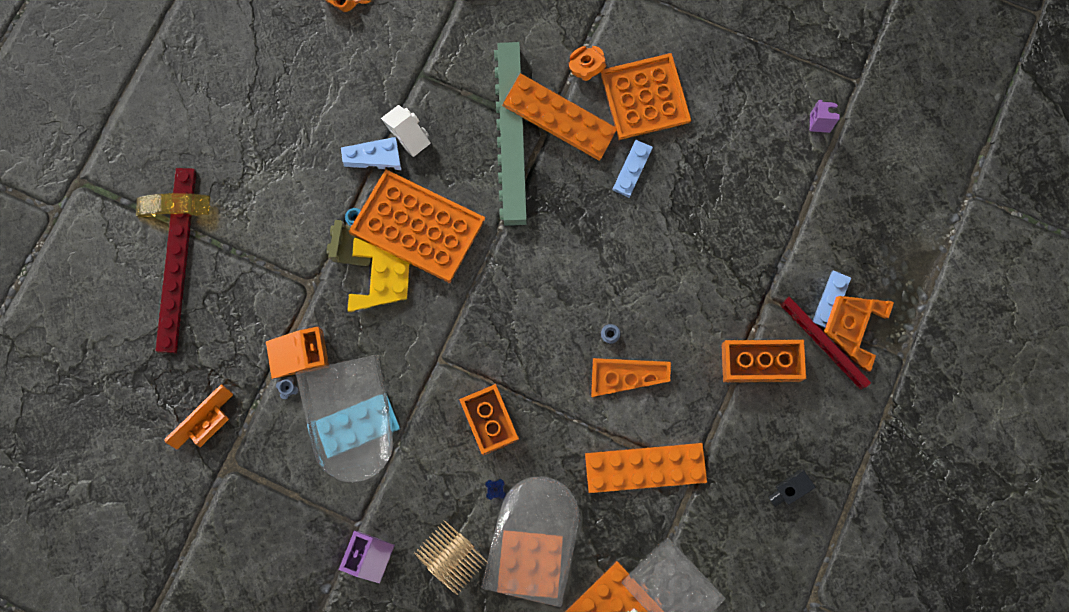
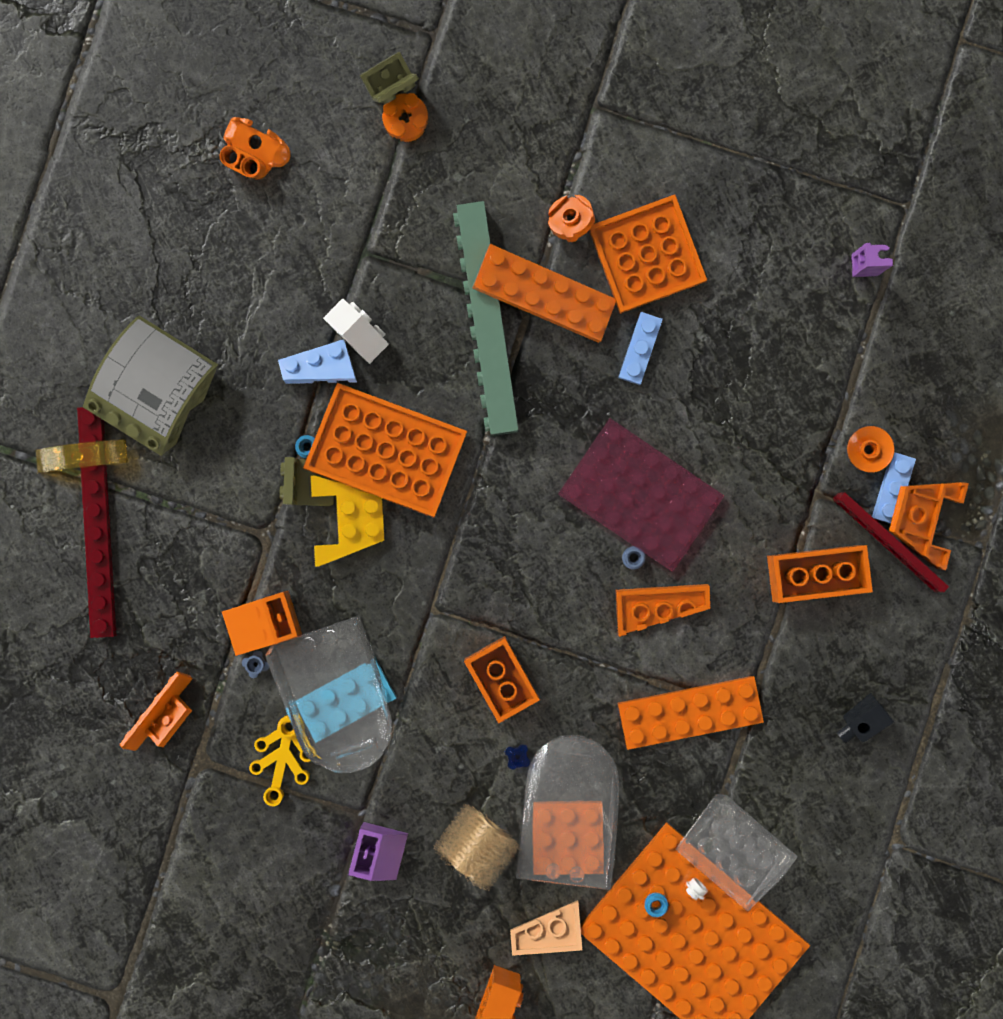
camera: 10 degrees left, 10 degrees up
(235, 154) = (149, 385): none -> light grey slope
(298, 466) = (282, 755): none -> yellow plant
(621, 284) = (641, 495): none -> clear pink plate
(817, 257) = (881, 449): none -> orange dish

